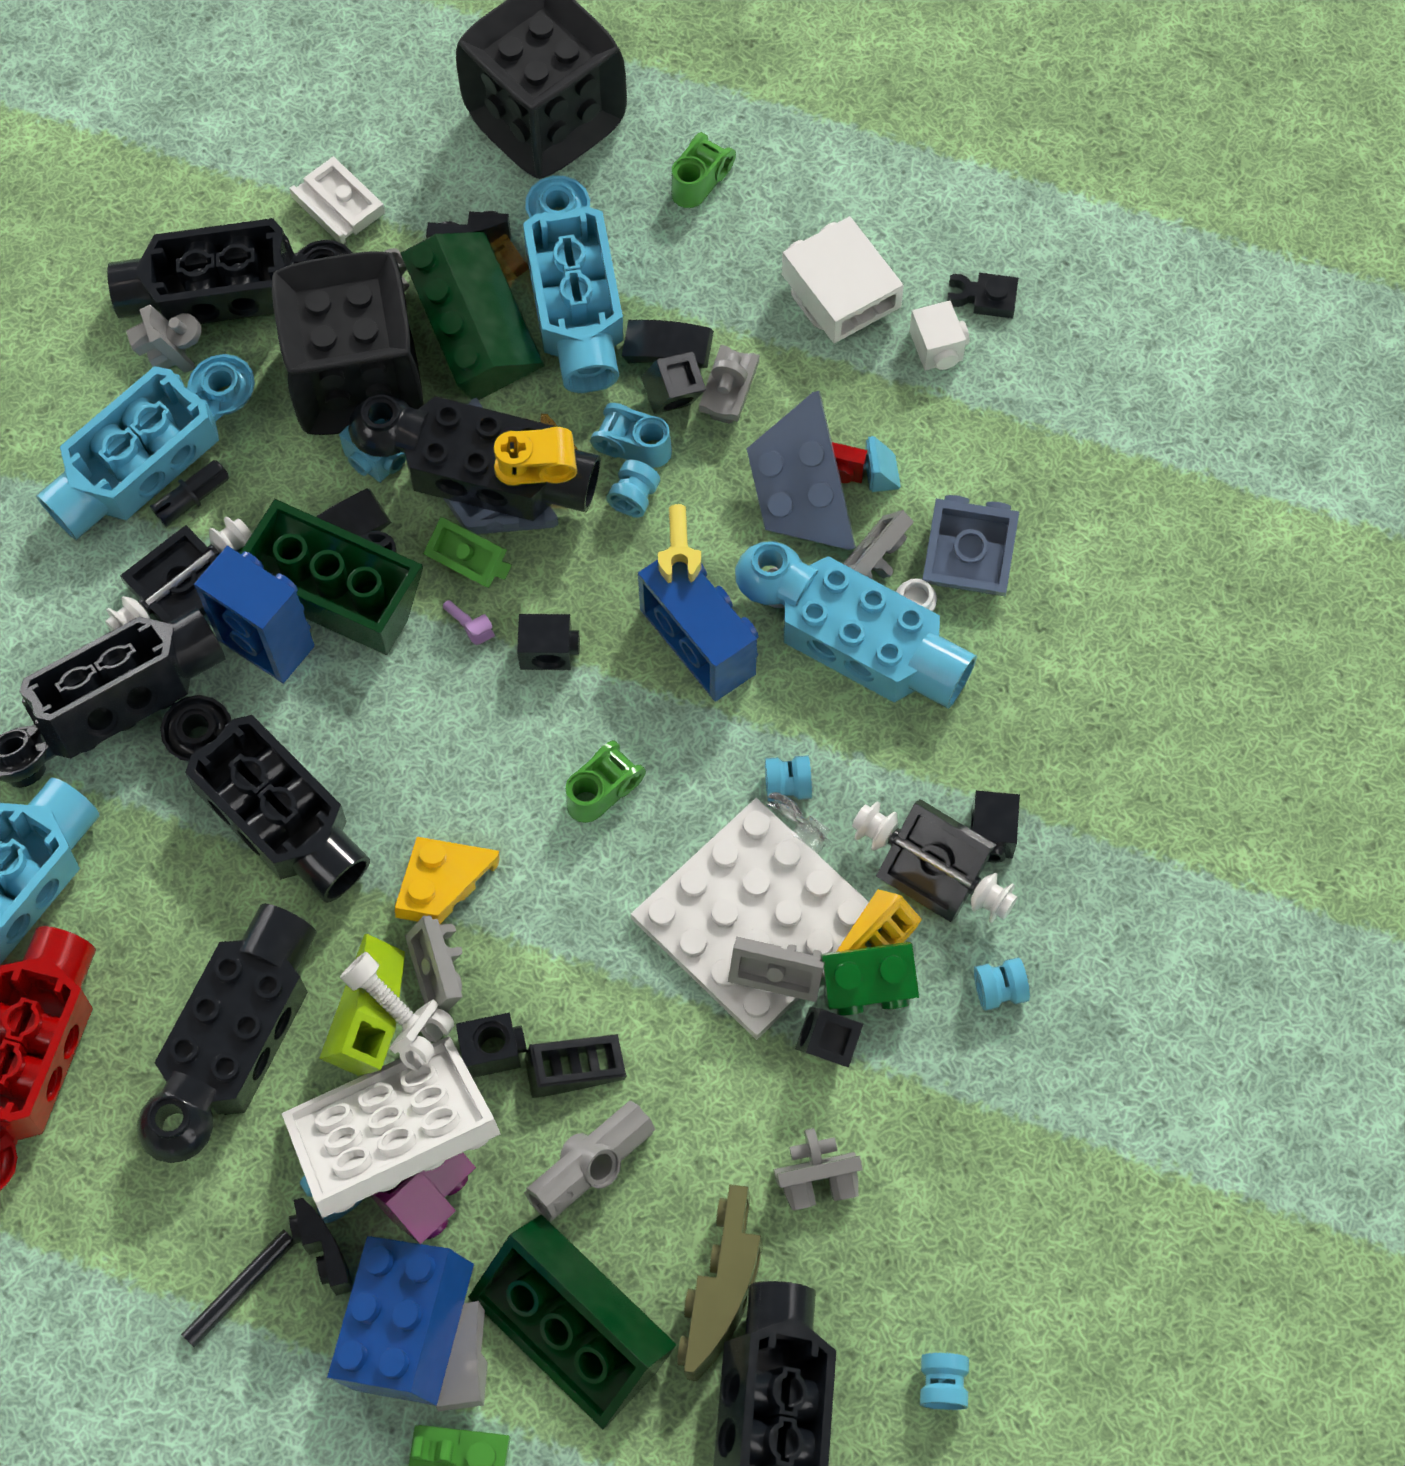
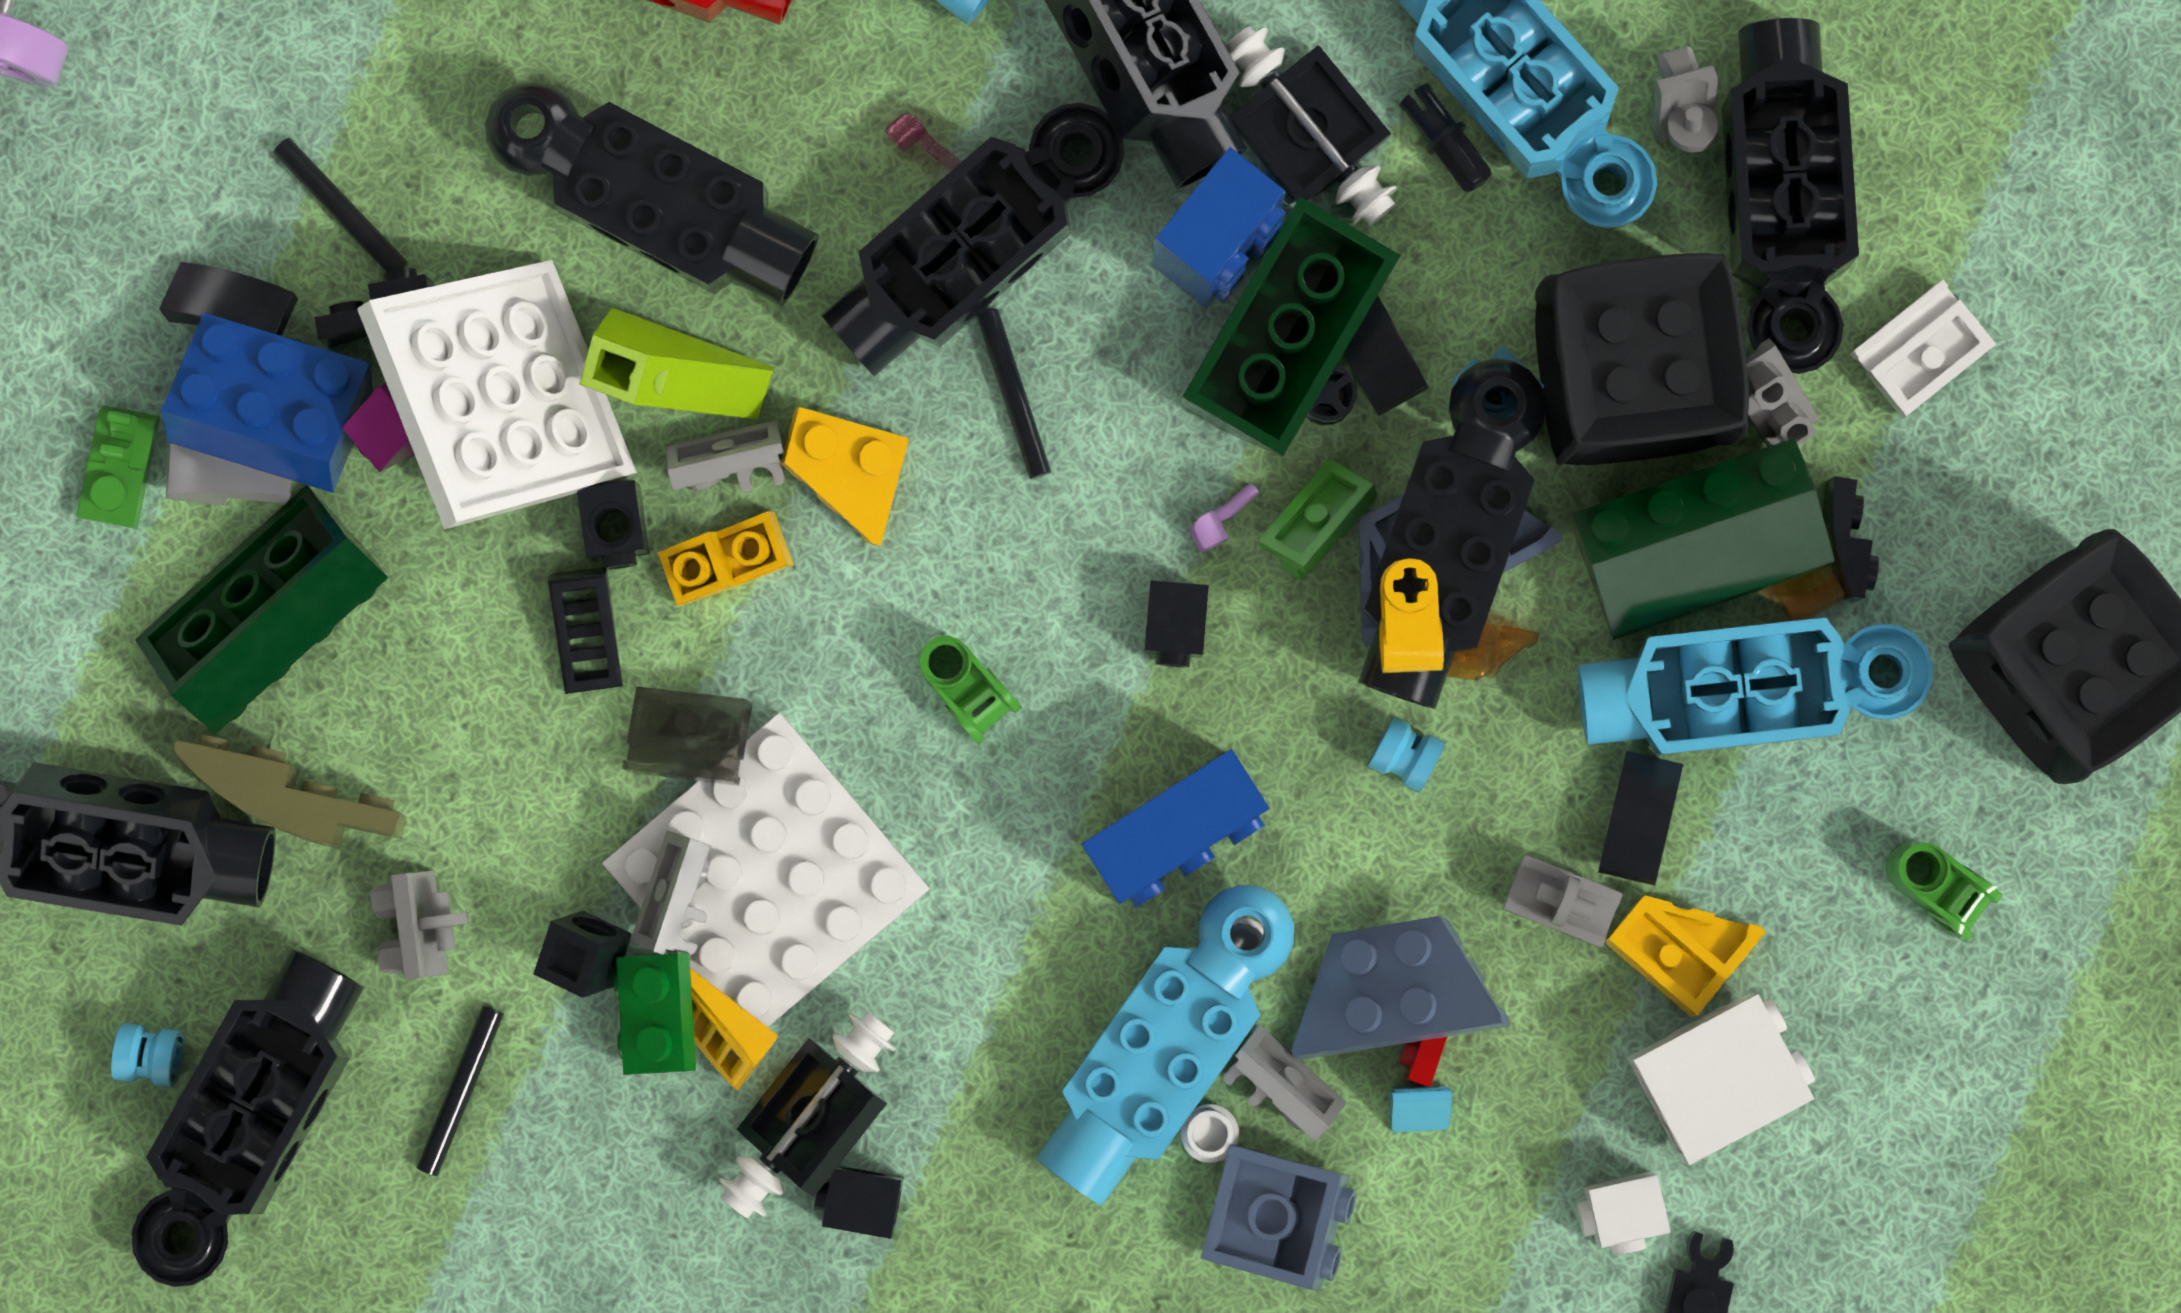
camera: 95 degrees right, 20 degrees up
(180, 853) = (909, 130): none -> clear pink hand
(309, 1390) = (227, 296): none -> black slope
(384, 767) = (1013, 393): none -> black bar
(428, 1019) = (693, 362): white bar -> none
(514, 964) = (725, 558): none -> yellow slope
(589, 1161) = (451, 641): light grey piece -> none
(627, 432) = (1493, 754): medium azure piece -> none
(653, 975) = (687, 735): none -> clear smoke plate
(673, 382) = (1564, 821): black brick -> none
(679, 549) = (1263, 807): light yellow bar -> none
(757, 314) = (1682, 949): none -> yellow wing
(789, 777) = (950, 919): medium azure wheel -> none
(807, 830) = (870, 954): clear plate -> none
(945, 1133) = (460, 1090): none -> black bar
(986, 1289) = (244, 1116): none -> black brick
(1001, 983) = (638, 1172): medium azure wheel -> none

